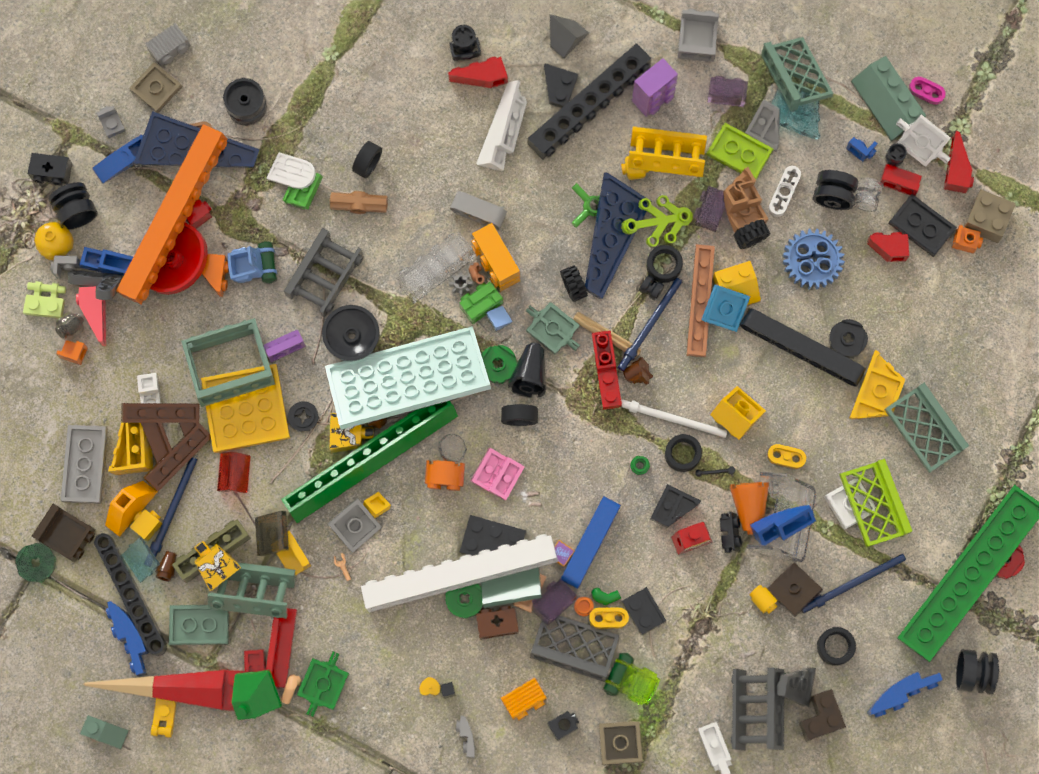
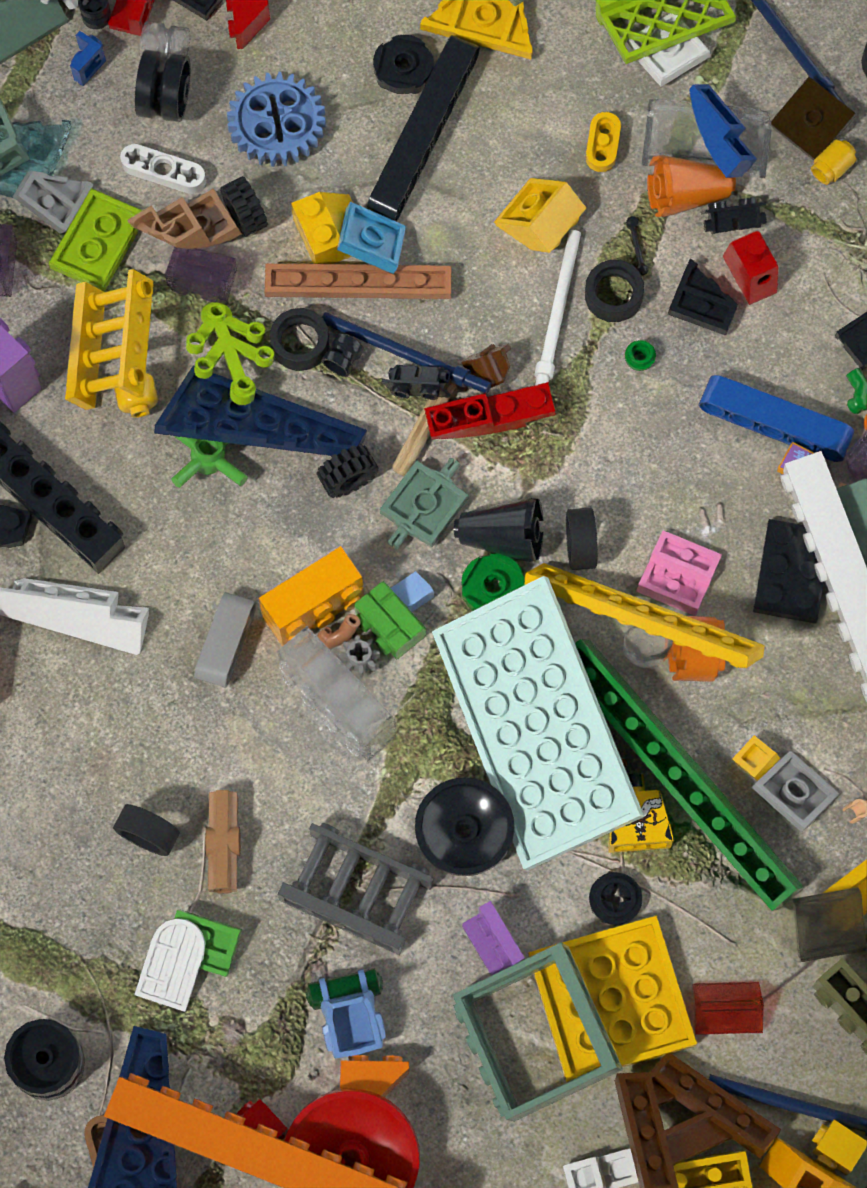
camera: 95 degrees left, 5 degrees down
(460, 441) = (650, 617): none -> yellow plate
(629, 322) = (405, 382): none -> black hinge

